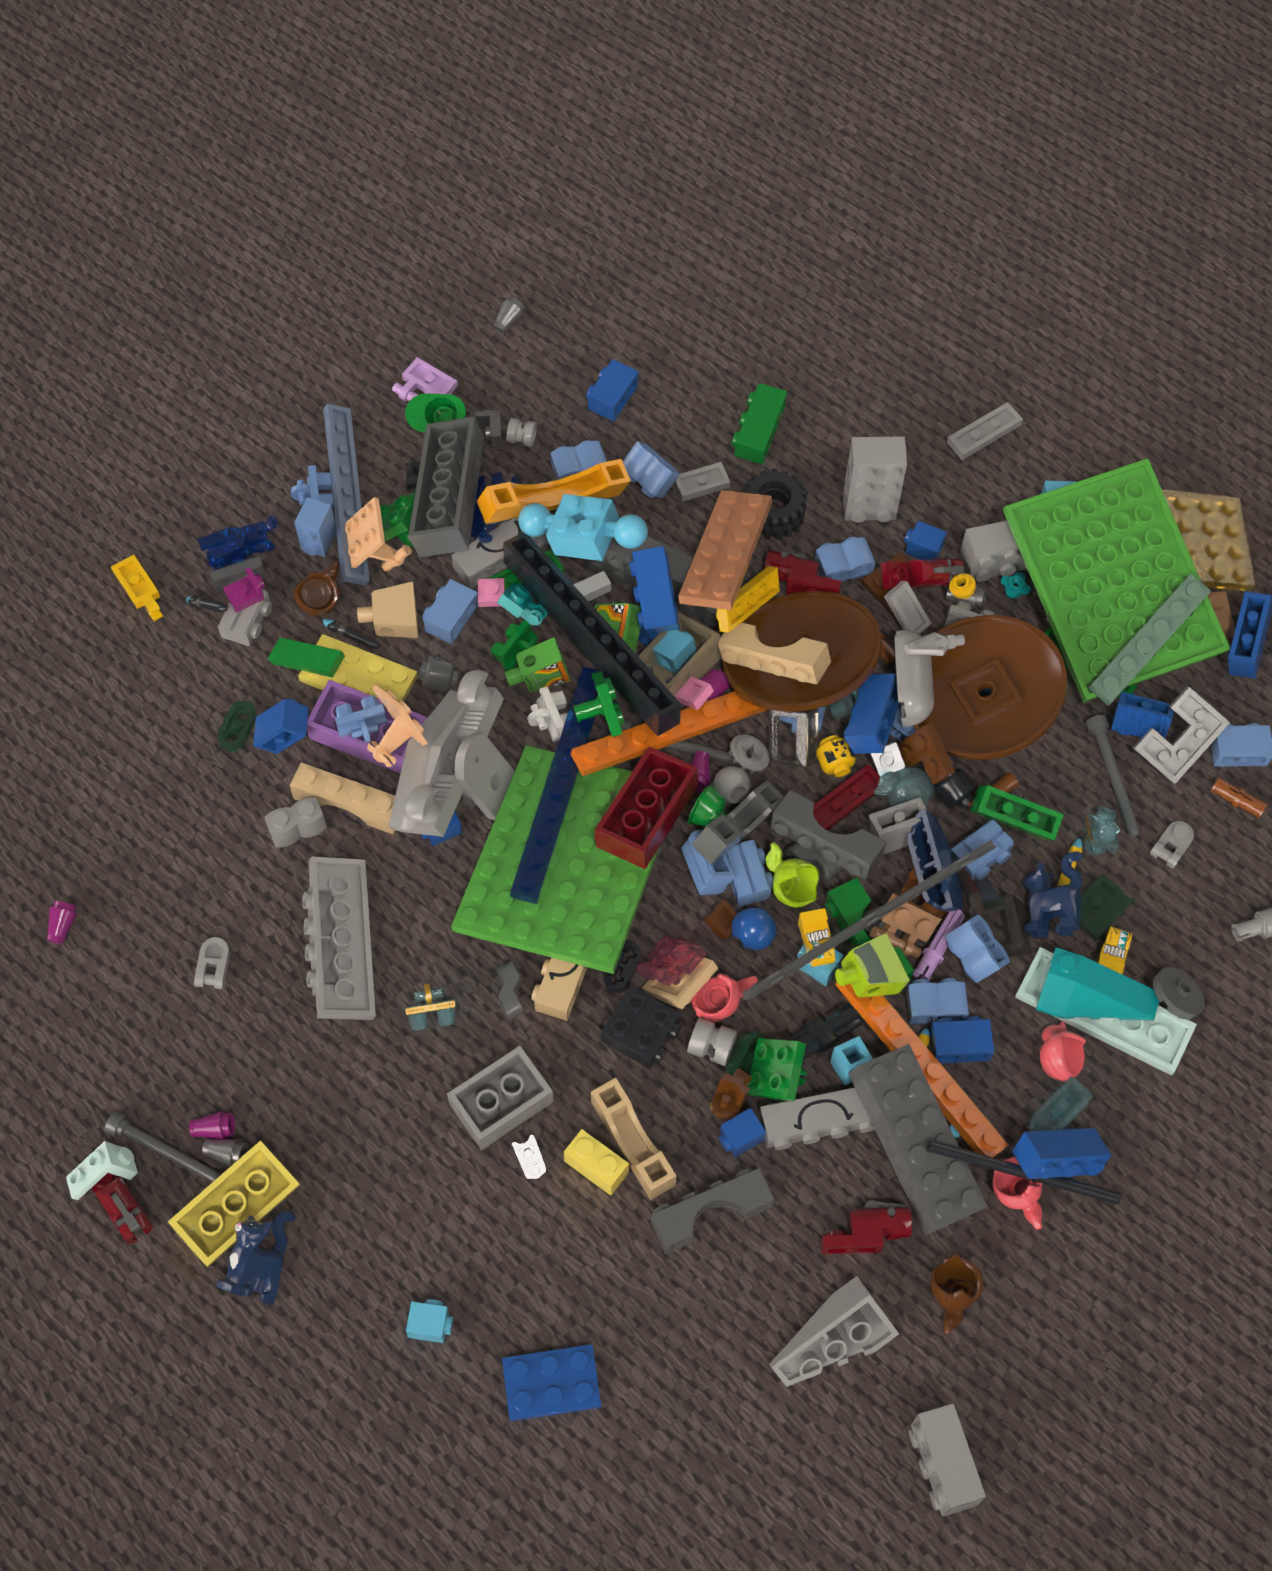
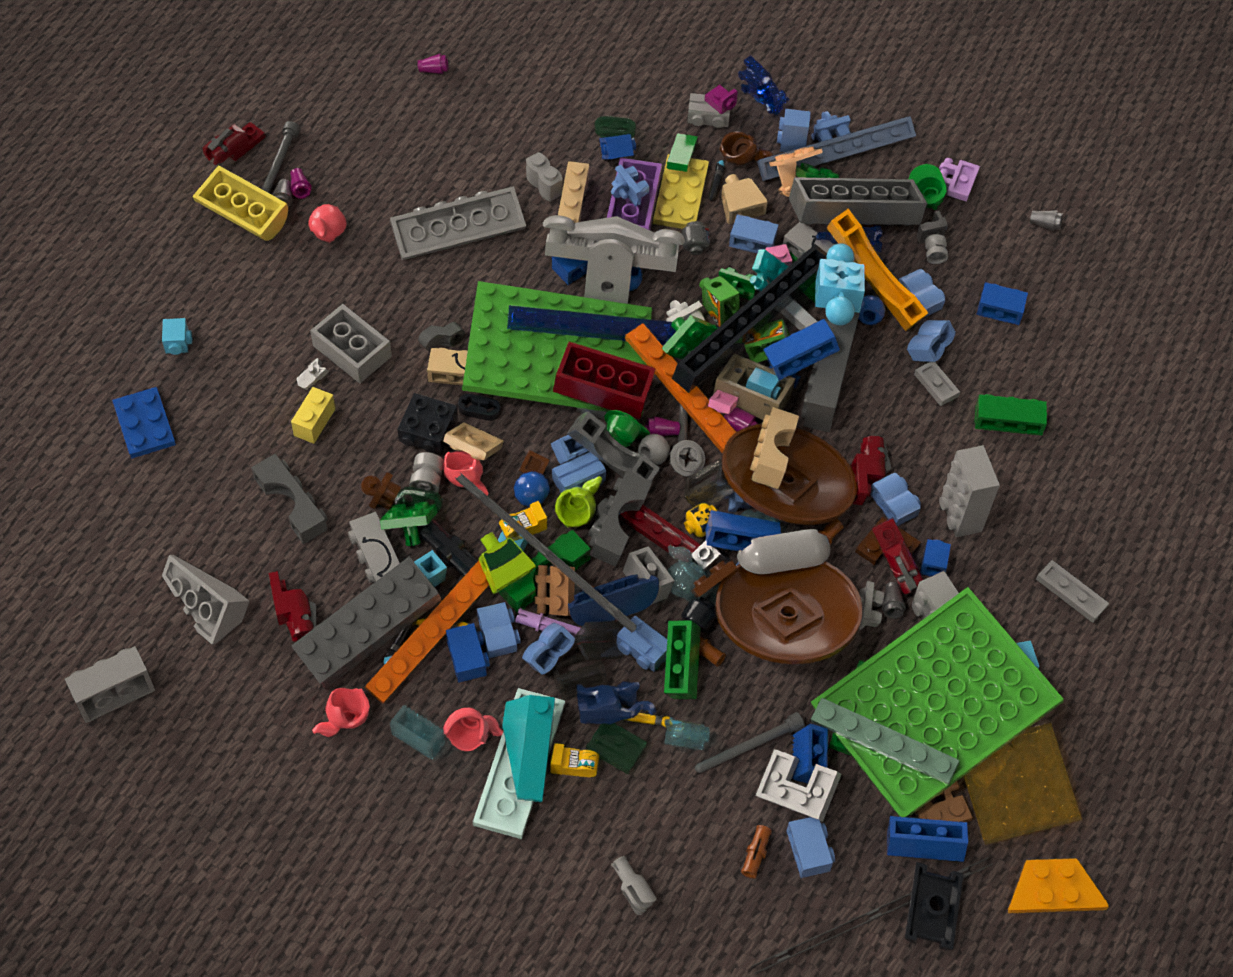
camera: 75 degrees right, 5 degrees down
(103, 1160) = (260, 129): light aqua bracket -> none
(138, 585) = (713, 45): yellow plate -> none
(196, 601) = (709, 85): black piece -> none
(214, 954) = (430, 156): light grey plate -> none
(235, 572) = (744, 100): dark grey tile -> none
(256, 1267) = (200, 224): dark blue animal -> none
(295, 1099) = (327, 222): none -> coral hair
(400, 730) = (630, 200): light nougat plate -> none
(444, 1009) = (410, 283): clear light blue hips -> none
(624, 1127) = (316, 449): tan arch -> none
(670, 960) = (486, 434): clear pink plate -> none
(725, 550) = (857, 391): nougat plate -> none
(741, 1133) = (354, 505): blue brick -> none
(750, 599) = (822, 423): yellow plate -> none
(784, 489) = (925, 449): black tyre -> none
(907, 608) = (859, 551): light grey tile -> none
(933, 644) = (814, 558): light grey piece -> none
(956, 1287) = (251, 673): reddish brown hair -> none
(965, 591) = (894, 588): yellow plate -> none
(1016, 1170) = (352, 764): black piece -> none
(1061, 1153) = (374, 732): blue brick -> none
(1177, 836) = (704, 806): light grey plate -> none
(1179, 993) = (535, 811): dark grey plate -> none

